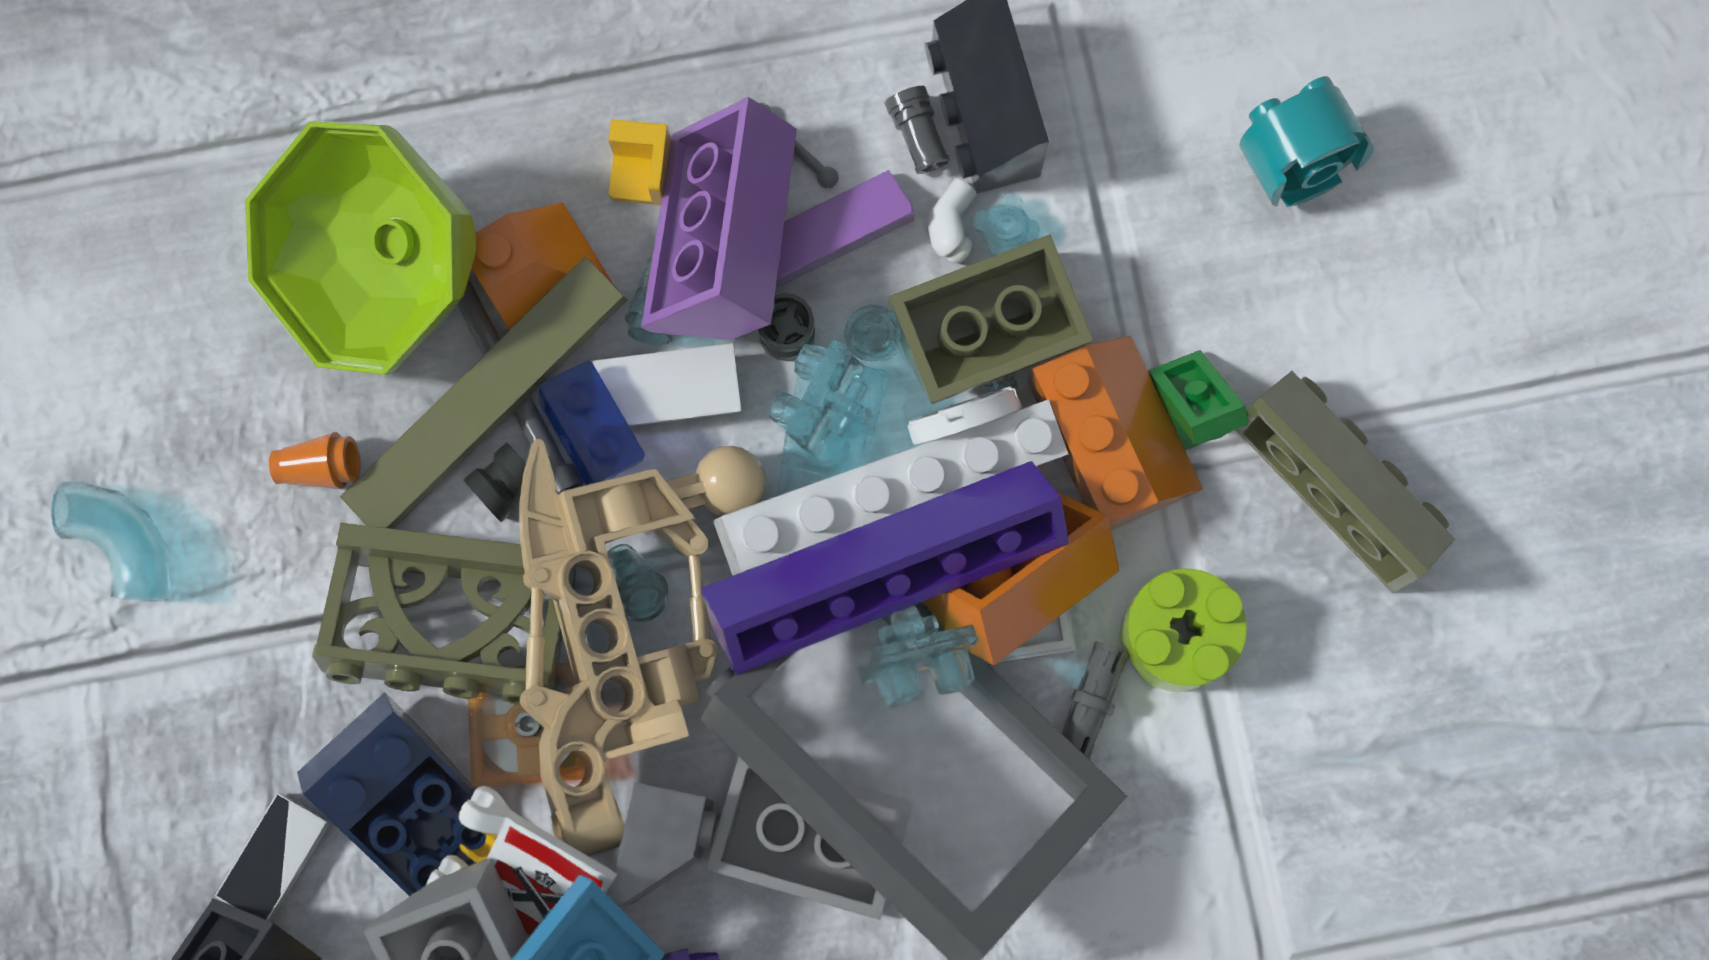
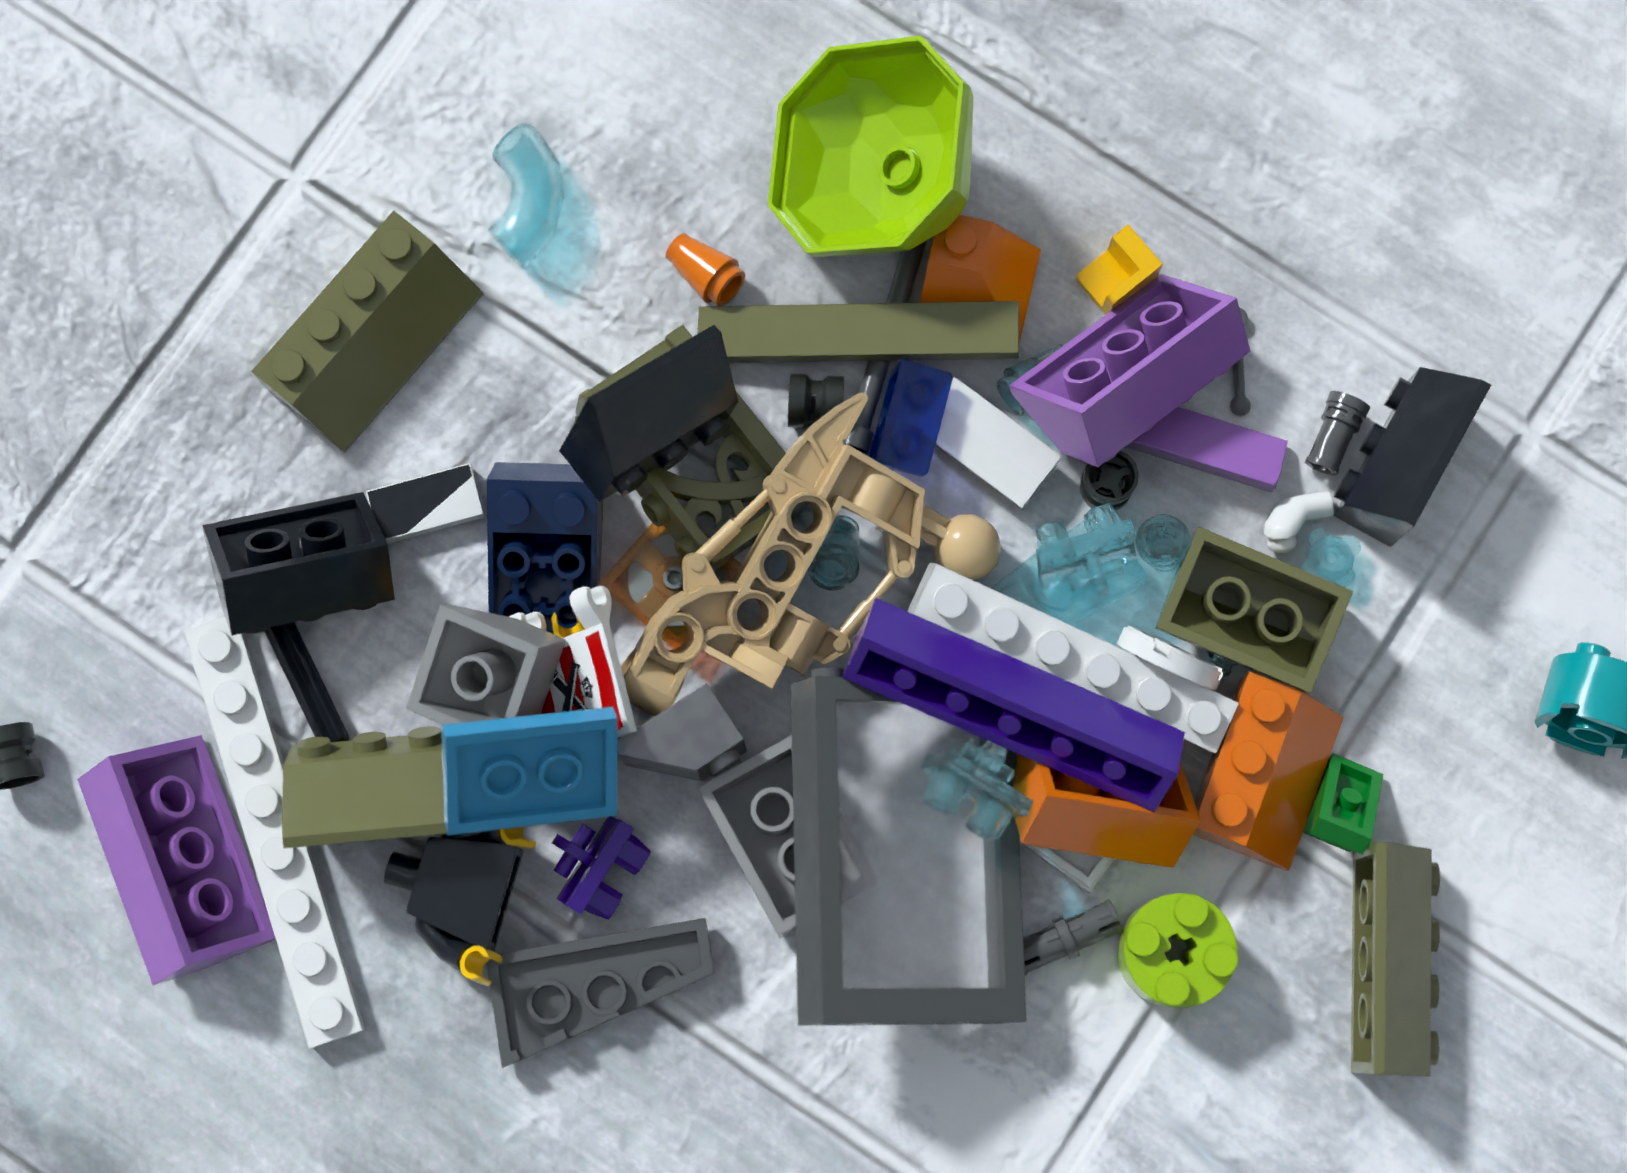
camera: 45 degrees right, 0 degrees up
(91, 770) = (368, 331): none -> olive slope
(387, 617) = (653, 416): none -> black slope

